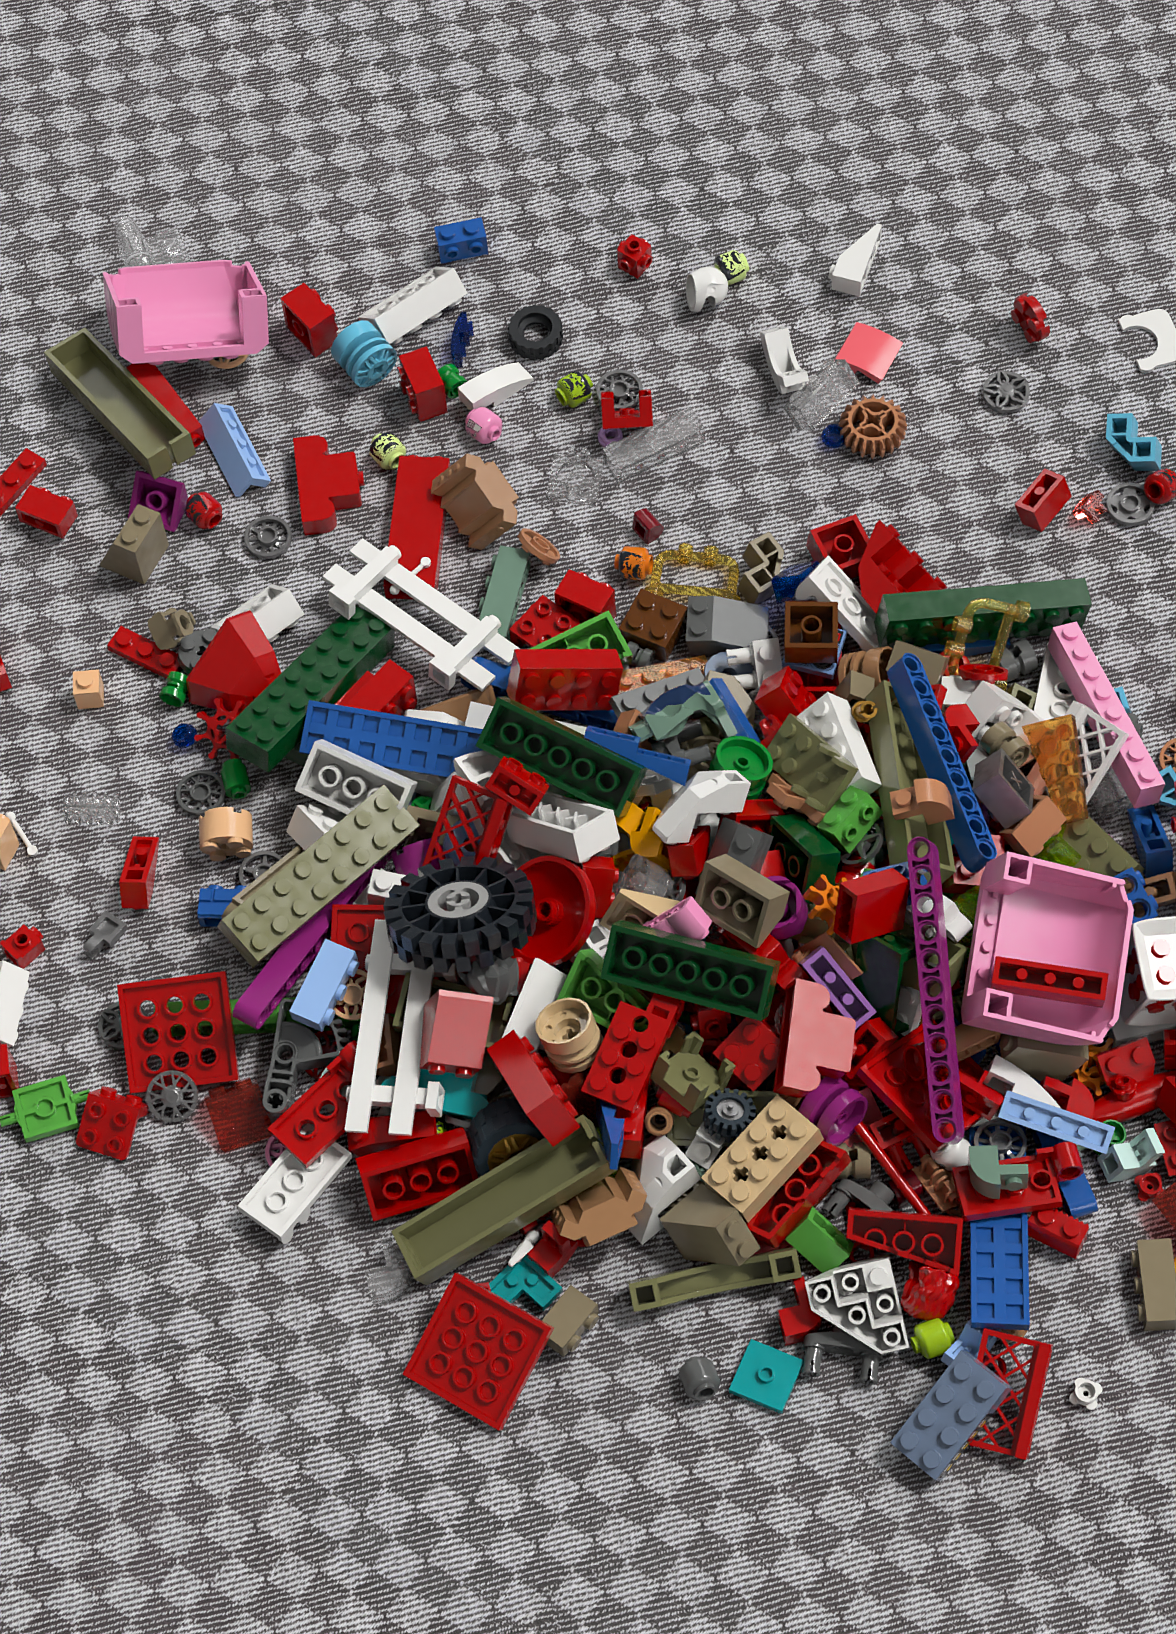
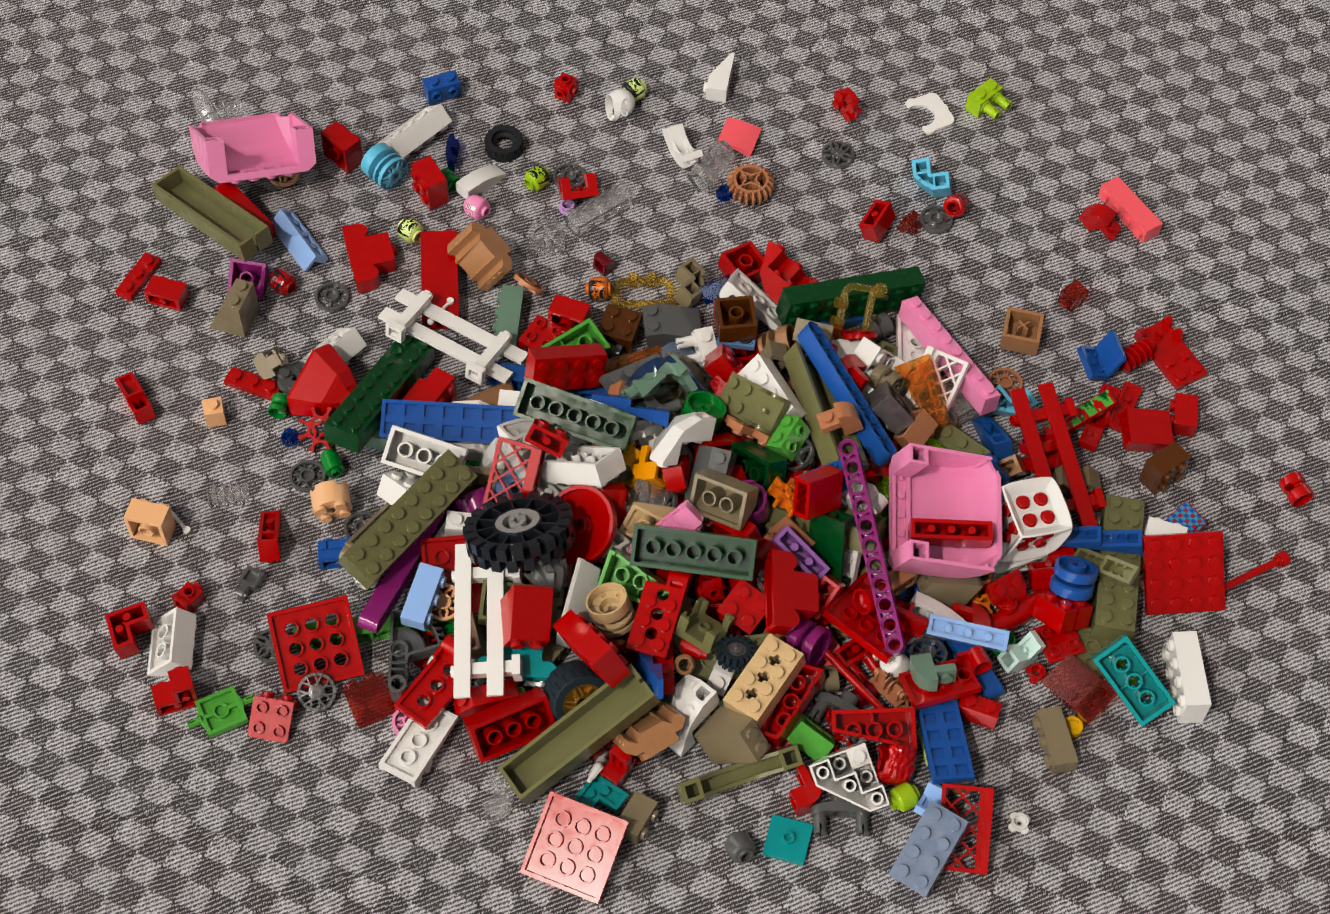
camera: 15 degrees left, 5 degrees down
(863, 711) = (785, 364): pearl gold axle -> none

